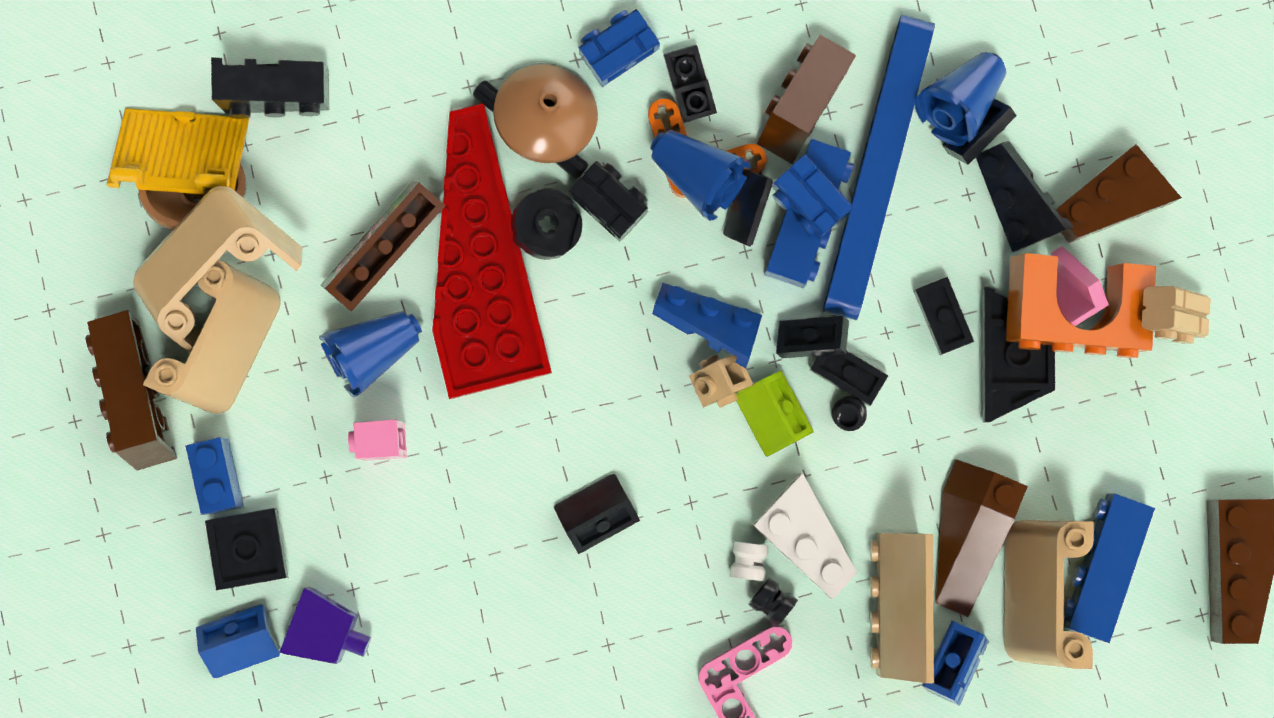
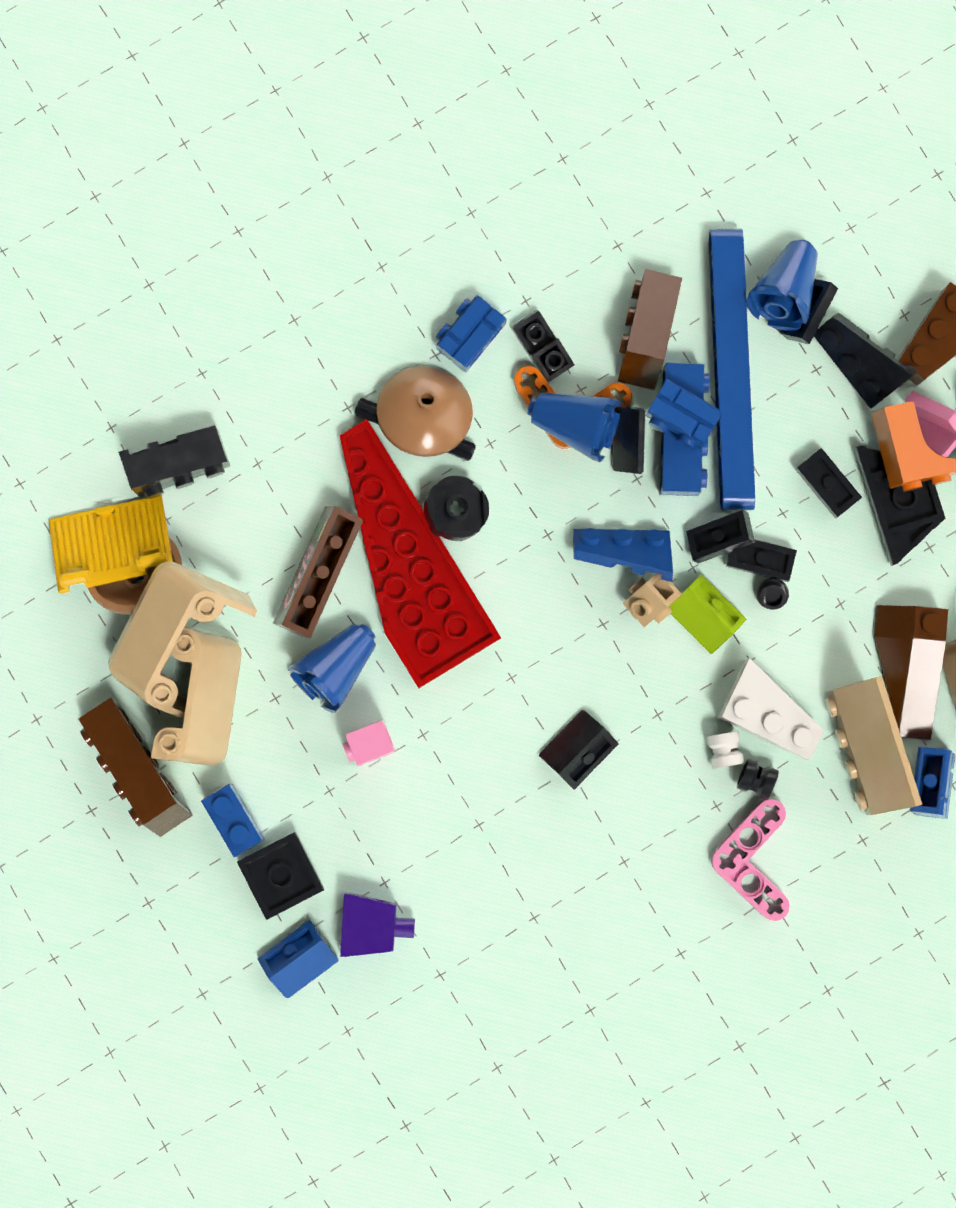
camera: 25 degrees left, 0 degrees up
(609, 200) = (504, 471): black brick -> none

